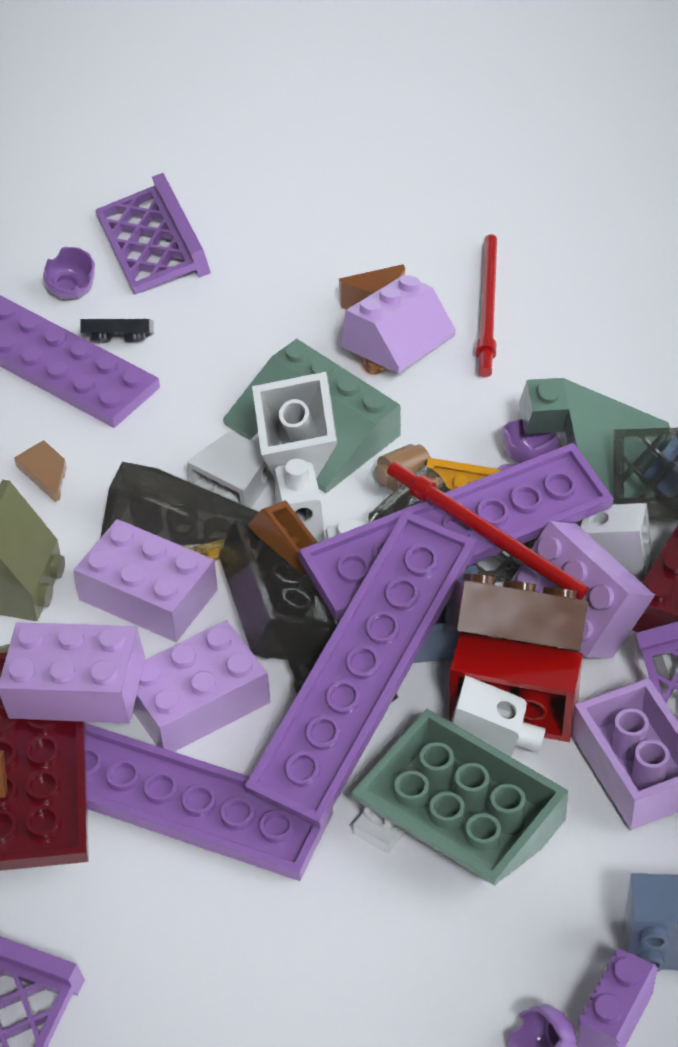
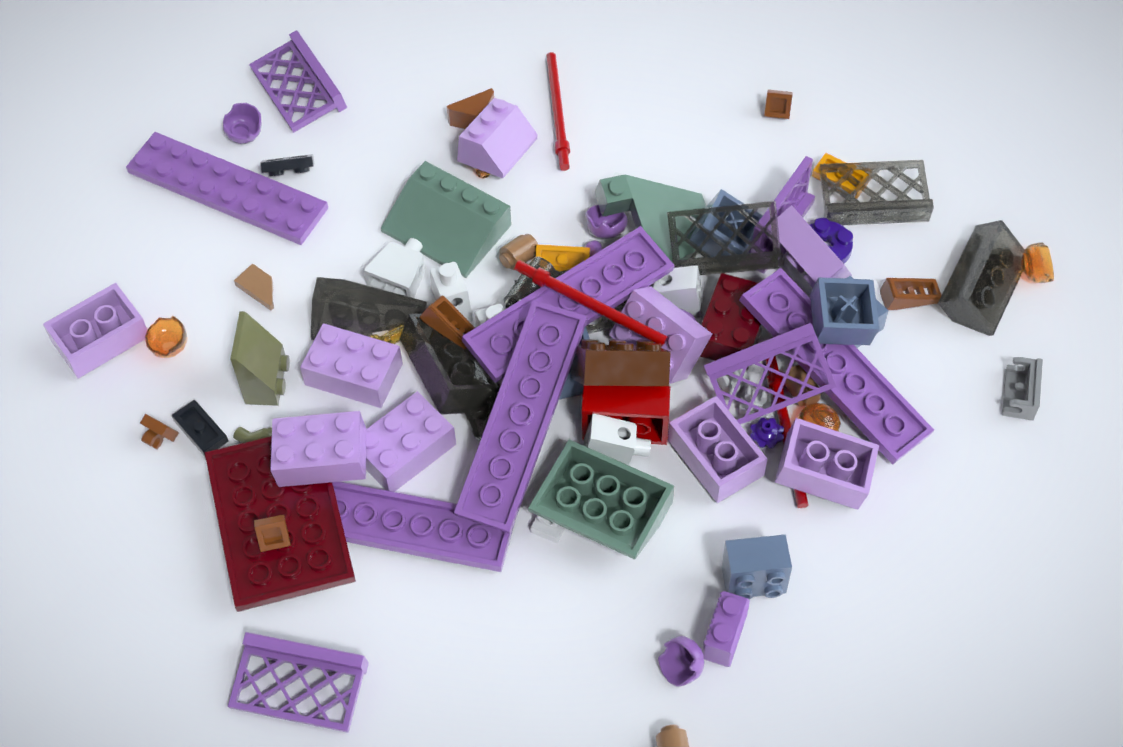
camera: 10 degrees left, 10 degrees up
(295, 421) = (440, 234): white slope -> none

